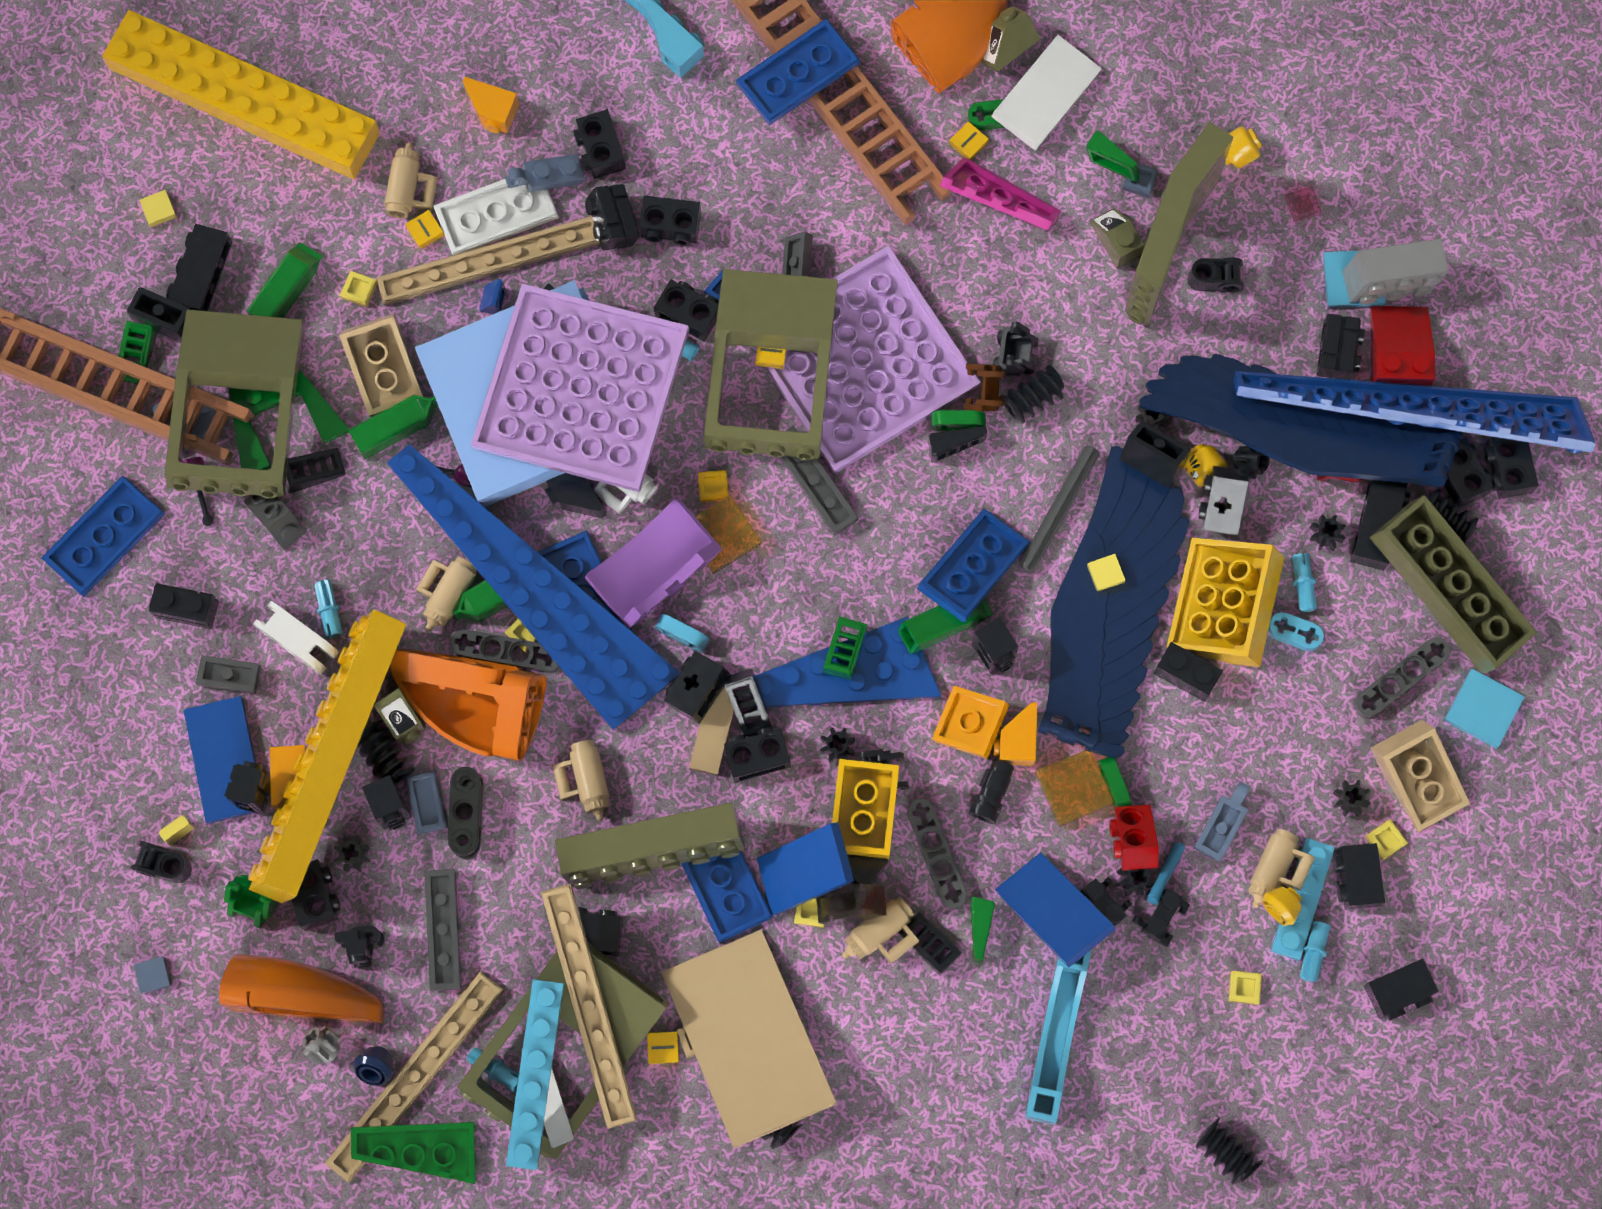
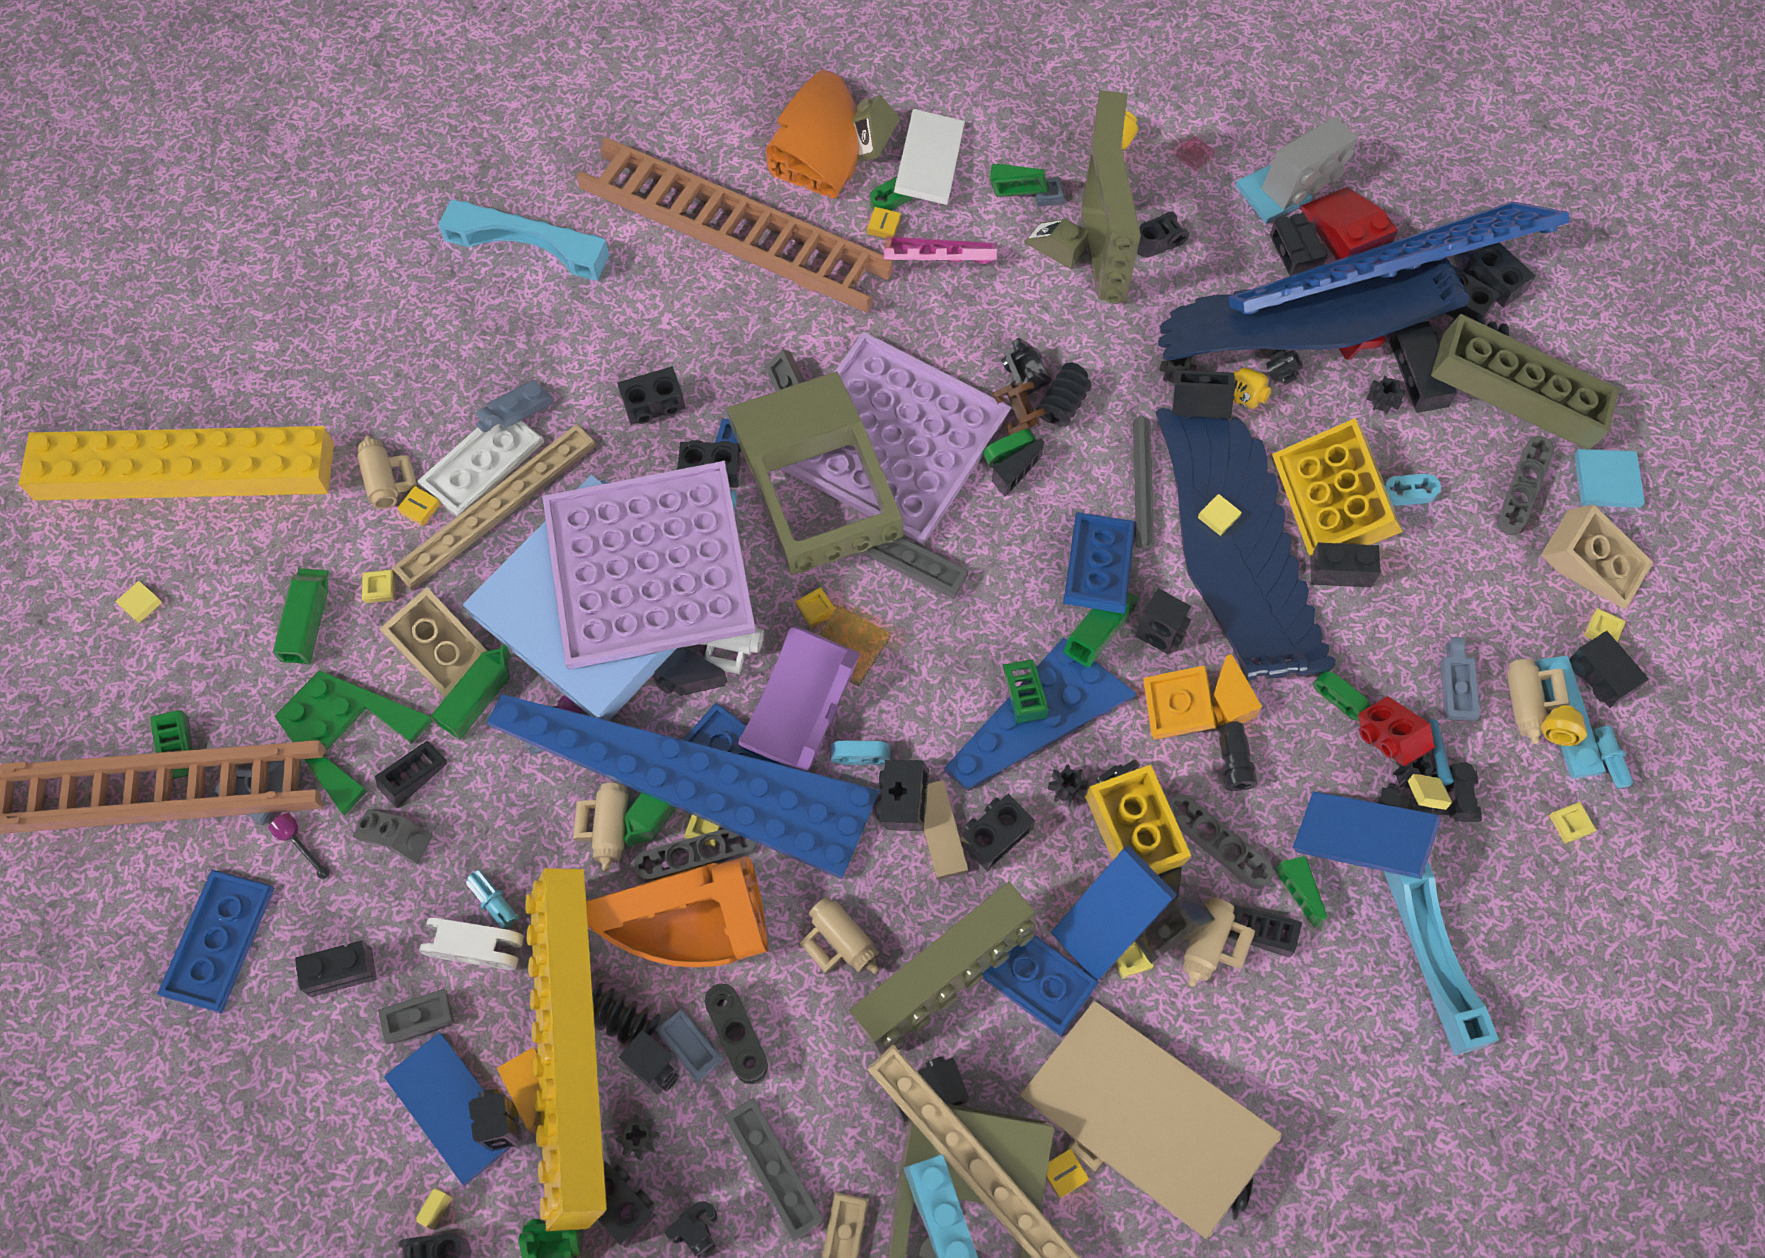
camera: 30 degrees left, 10 degrees down
(159, 312) = (188, 692): black brick -> none
(200, 267) = (206, 638): black brick -> none
(243, 355) = (281, 694): olive window -> none
(400, 717) = (620, 969): slope -> none
(492, 105) = (430, 370): light orange slope -> none
(493, 297) = (514, 533): blue slope -> none
(603, 143) = (555, 358): black brick -> none
(612, 217) = (596, 415): black brick -> none
(740, 679) = (942, 767): black slope -> none
(770, 357) = (810, 468): yellow tile -> none
(797, 71) = (703, 225): blue tile -> none
(1074, 787) = (1307, 717): clear yellow plate -> none
(1129, 901) = (1429, 791): none -> light yellow tile
(1224, 516) = (1286, 404): brick -> none
(1227, 1152) = (1665, 984): black piece -> none
(1304, 582) = (1392, 444): medium azure axle -> none
(1343, 800) = (1554, 605): pearl dark grey gear -> none
(1401, 989) = (1711, 752): black brick -> none

